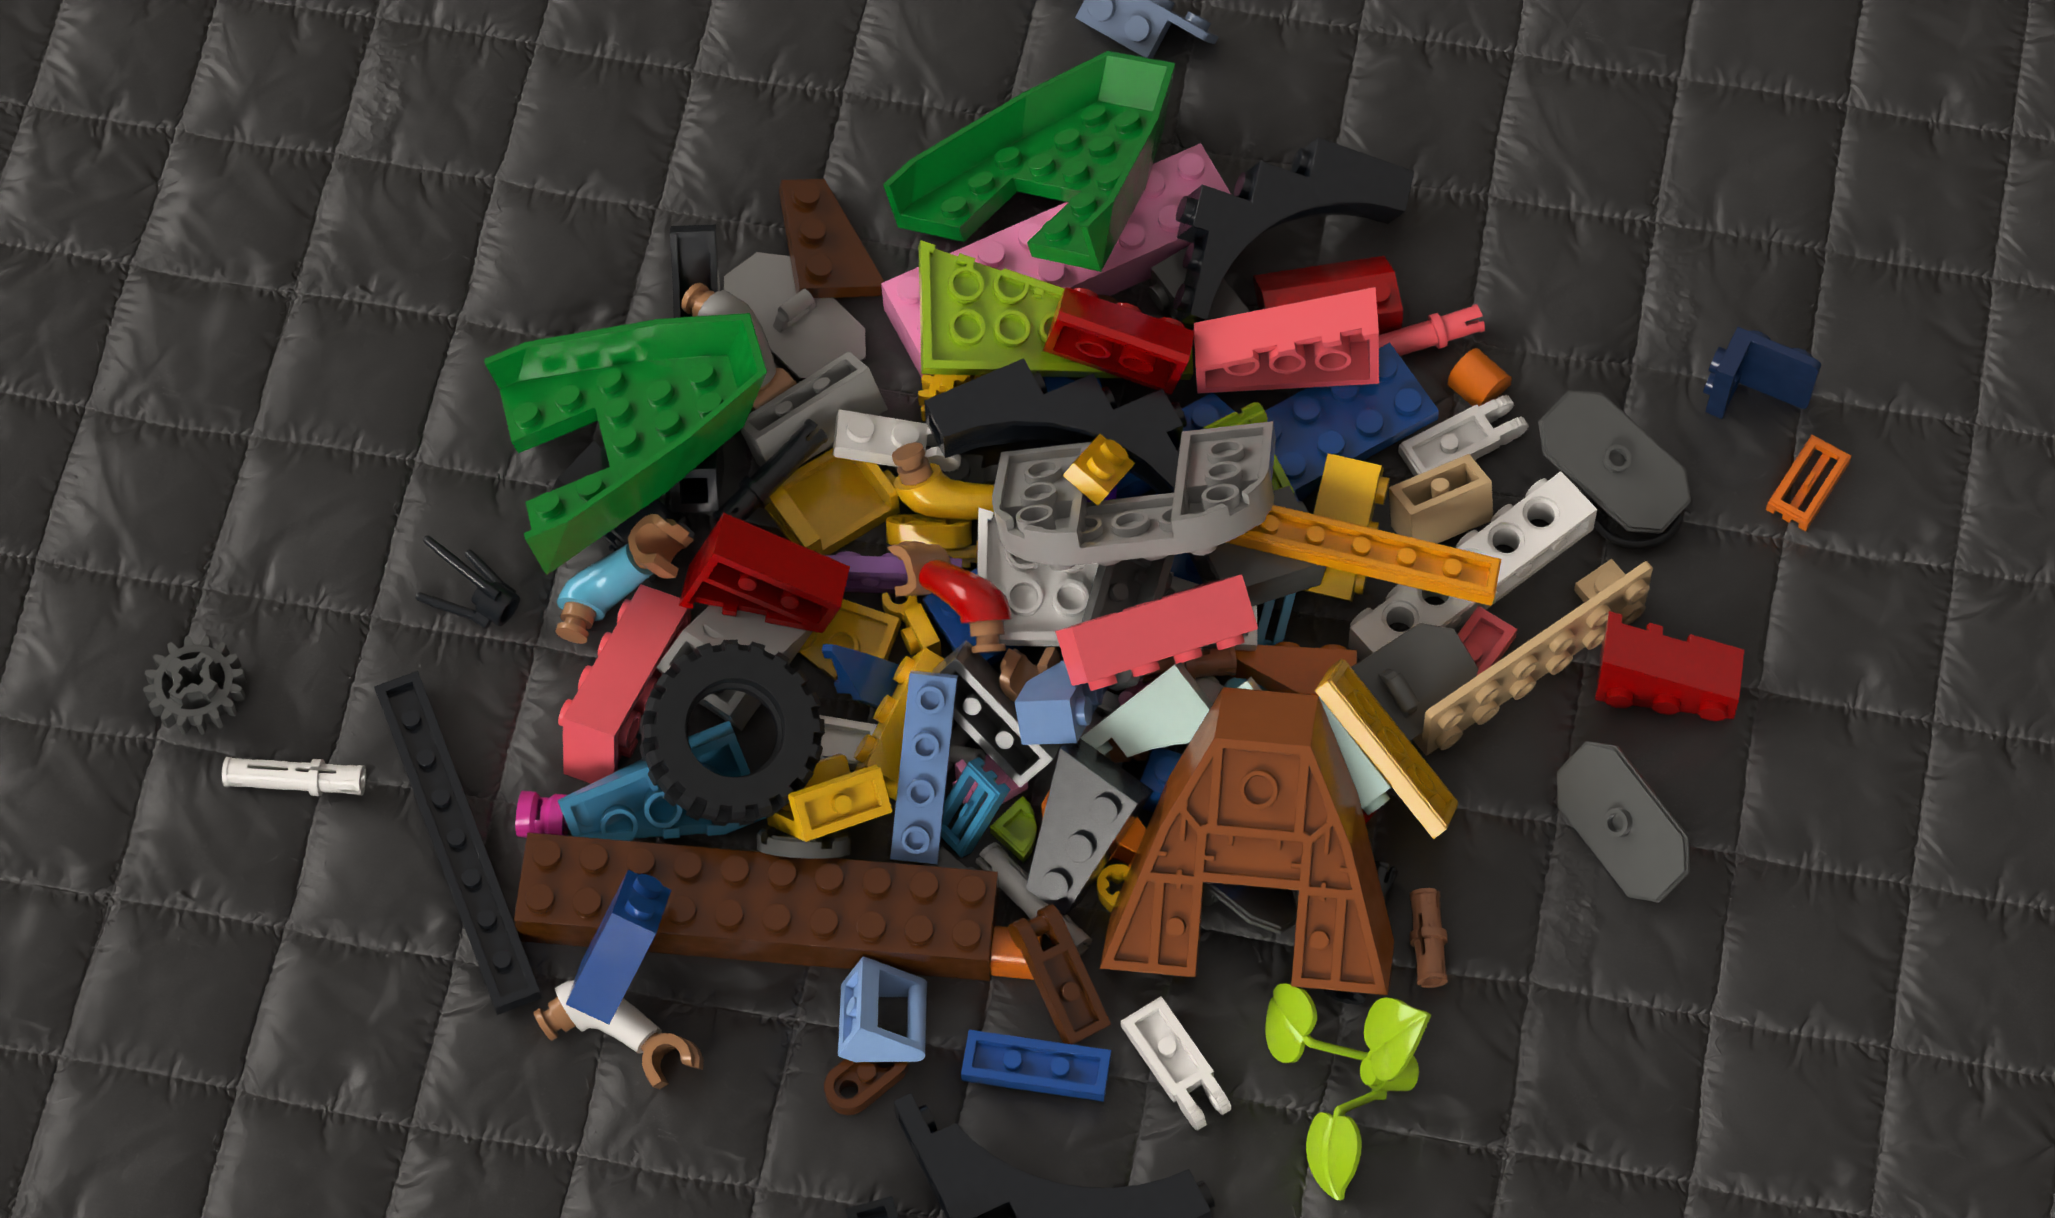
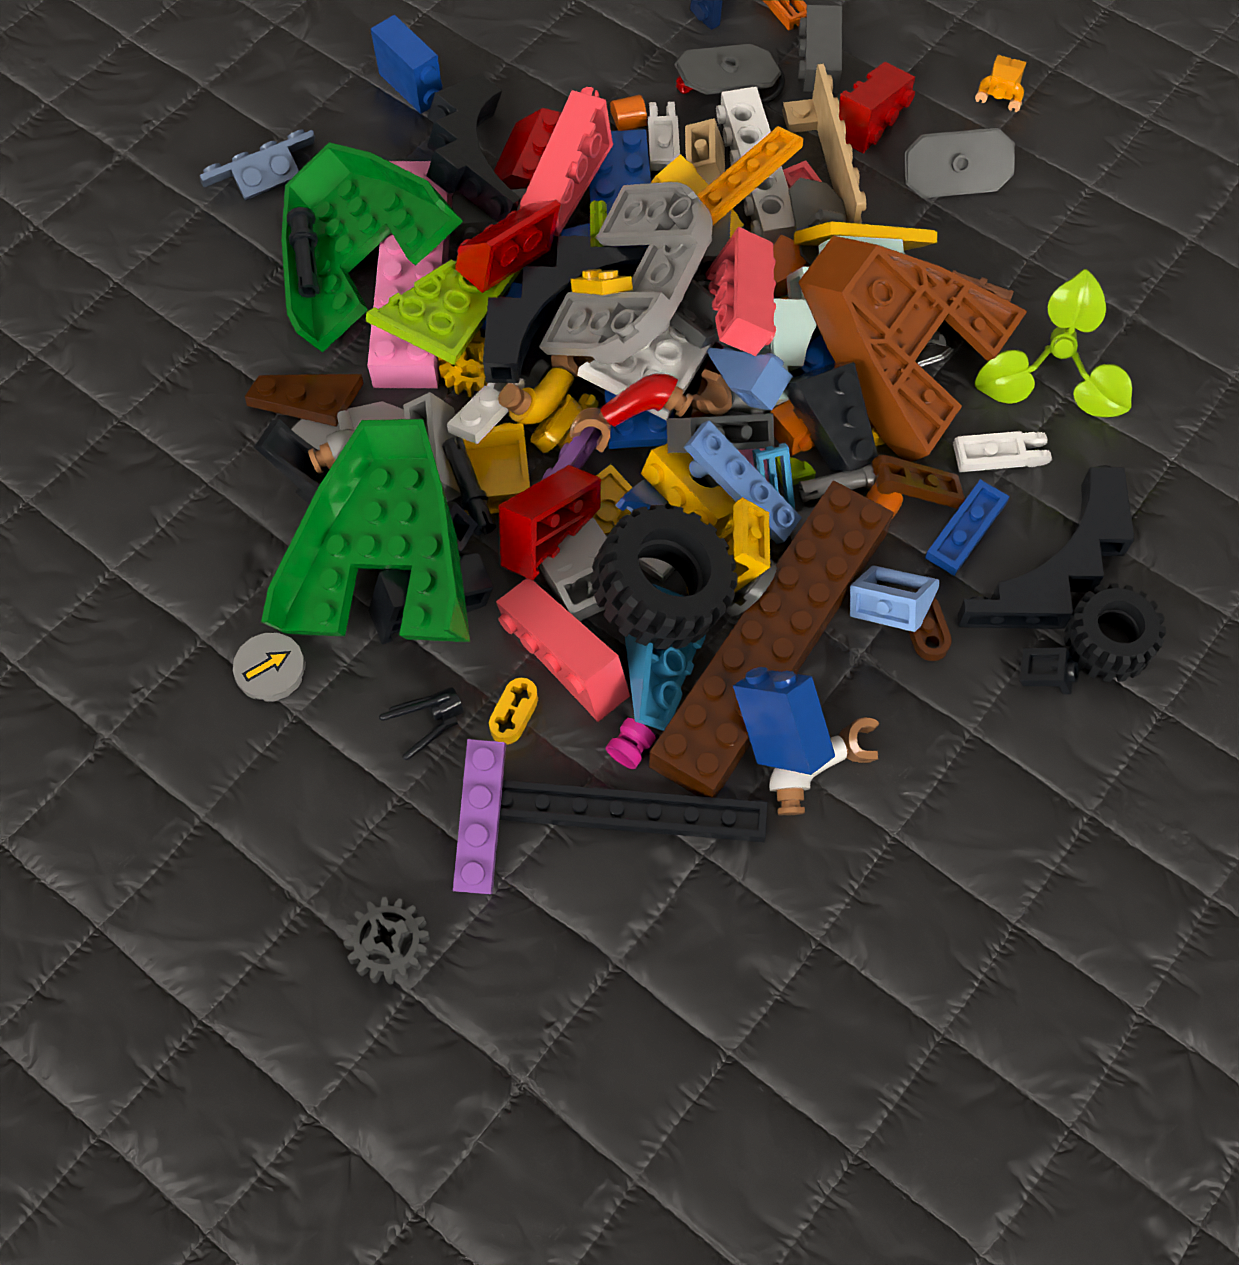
camera: 65 degrees left, 0 degrees up
(302, 776) = (510, 888): white pin -> none
(373, 701) = (479, 817): none -> medium lavender plate
(455, 401) = (269, 666): none -> light grey tile
(527, 676) = (520, 714): none -> yellow beam
(609, 580) = (481, 609): piece -> none
(919, 630) = (623, 457): yellow plate -> none
(1025, 117) = (303, 241): none -> black pin
(1378, 81) = (406, 63): none -> blue brick
(1738, 563) = (820, 44): none -> dark grey brick
(1817, 823) = (1004, 82): none -> light orange piece

